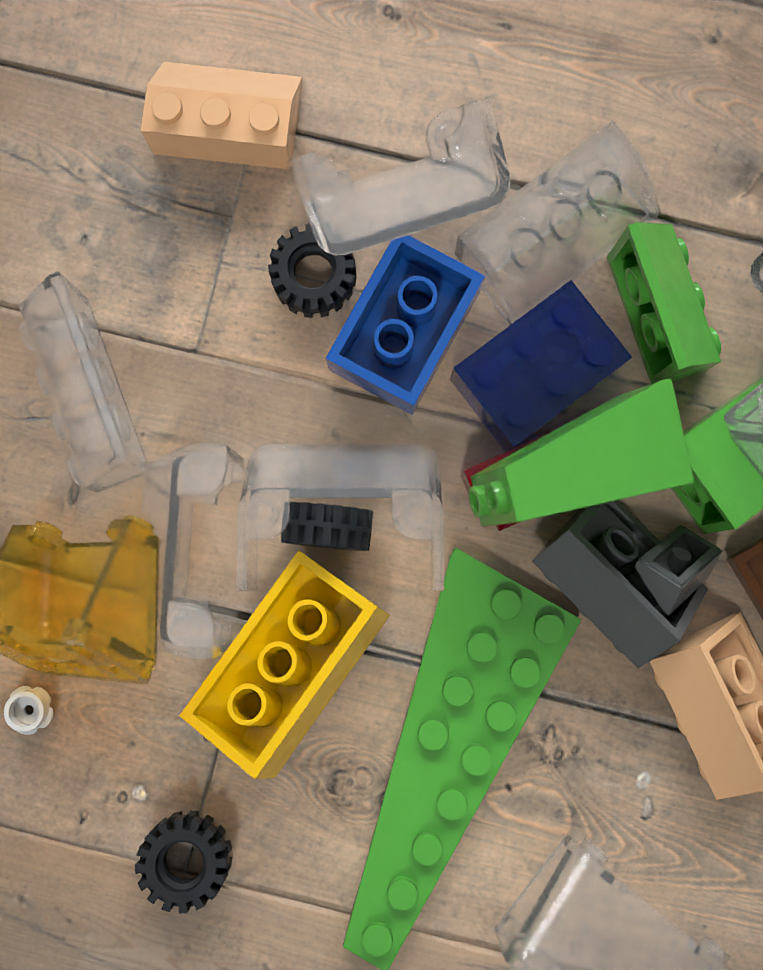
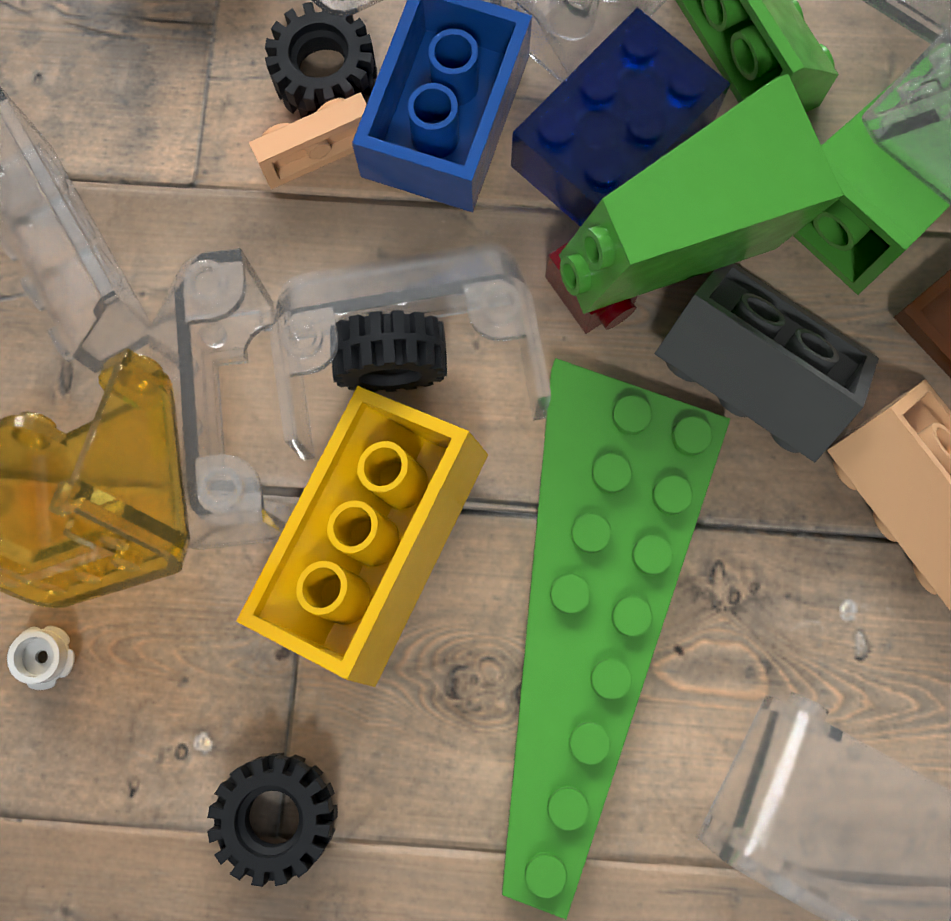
camera: 10 degrees left, 5 degrees down
(277, 341) = (310, 142): none -> light nougat plate
(677, 567) = (839, 328): dark grey slope -> none

